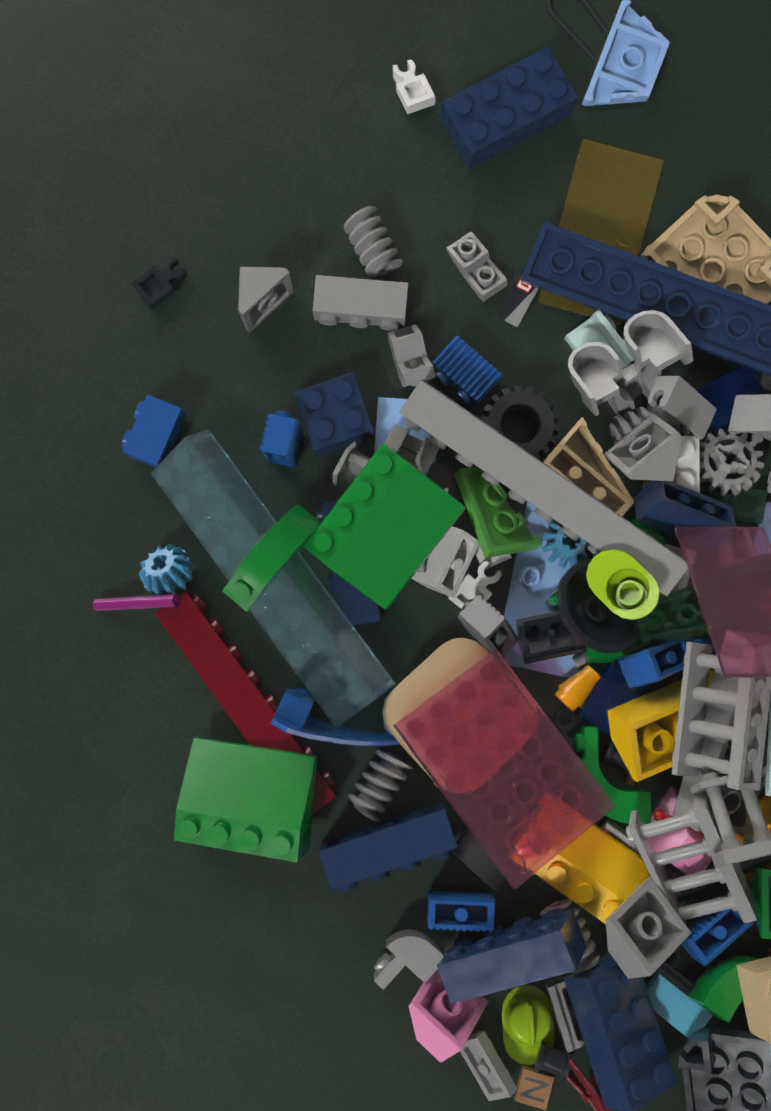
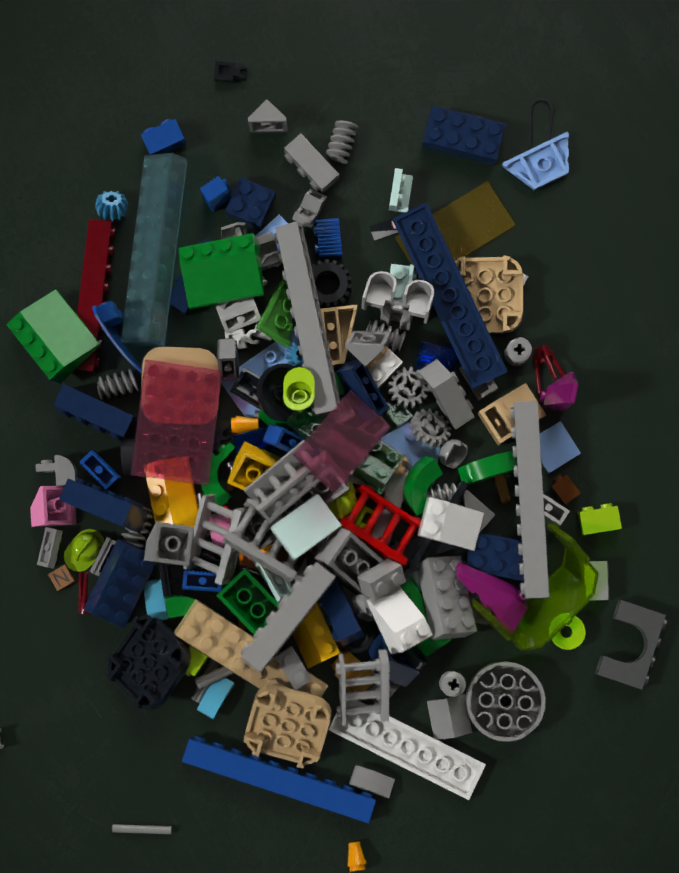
camera: 45 degrees right, 0 degrees up
(136, 602) = (85, 207): magenta bar -> none
(270, 556) = (160, 238): green arch -> none
(412, 89) = (429, 87): white plate -> none
(476, 267) = (381, 195): light grey slope -> none
(496, 239) = (400, 191): none -> light aqua bracket
(553, 1061) = (79, 569): black bush -> none
(683, 404) = (405, 340): light grey hinge -> none

